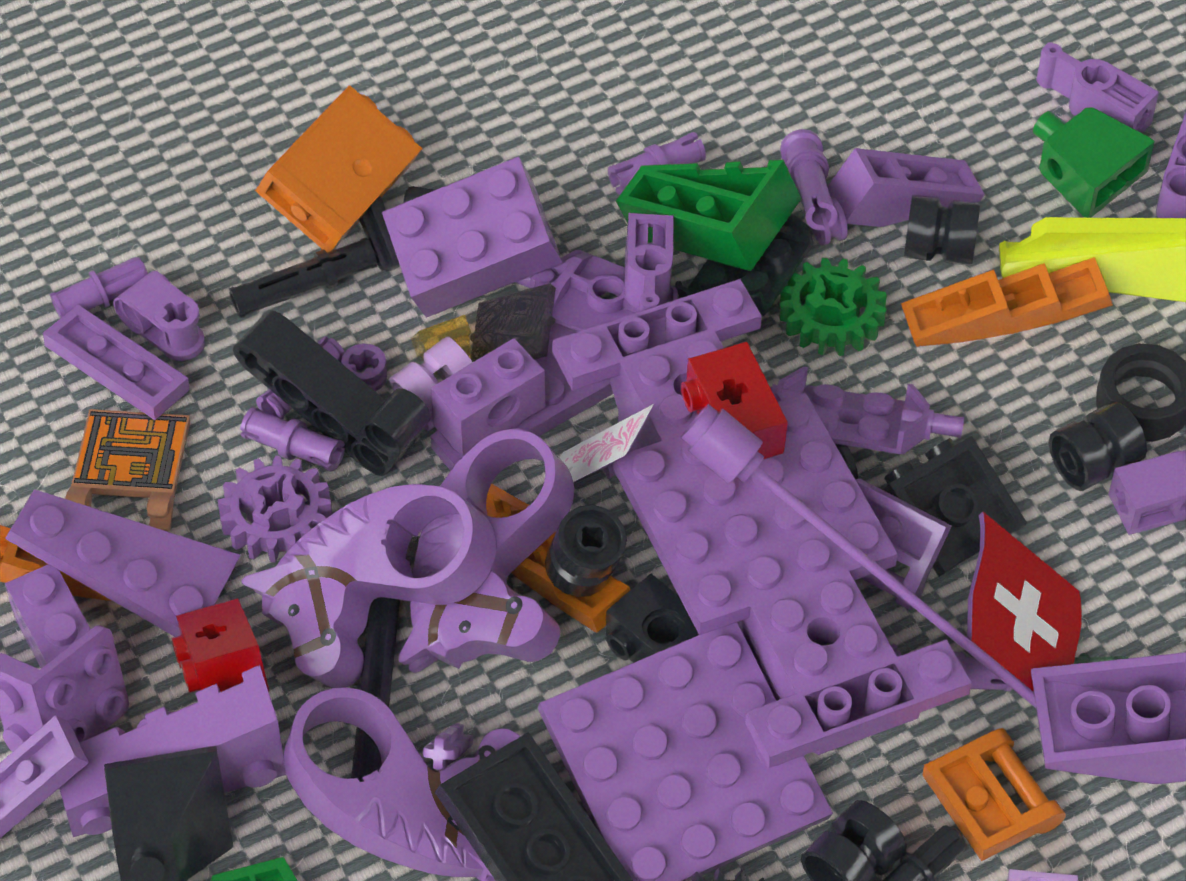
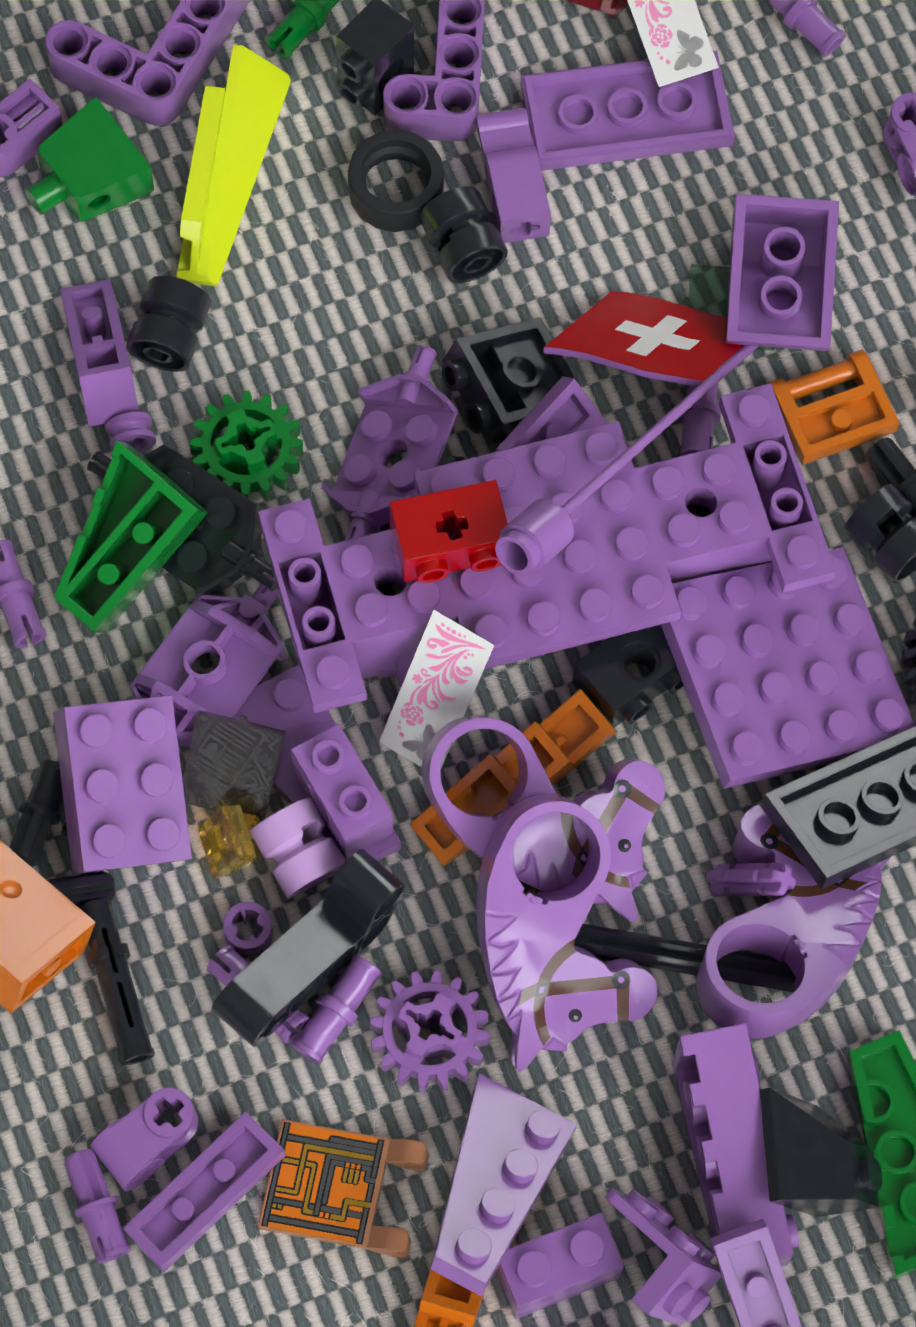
camera: 85 degrees left, 15 degrees up
(216, 646) = (621, 1091): red brick -> none
(585, 550) = (561, 713): black wheel -> none
(648, 264) = (178, 607): medium lavender piece -> none
(809, 169) = (69, 438): medium lavender pin -> none
(995, 307) = (264, 284): orange slope -> none

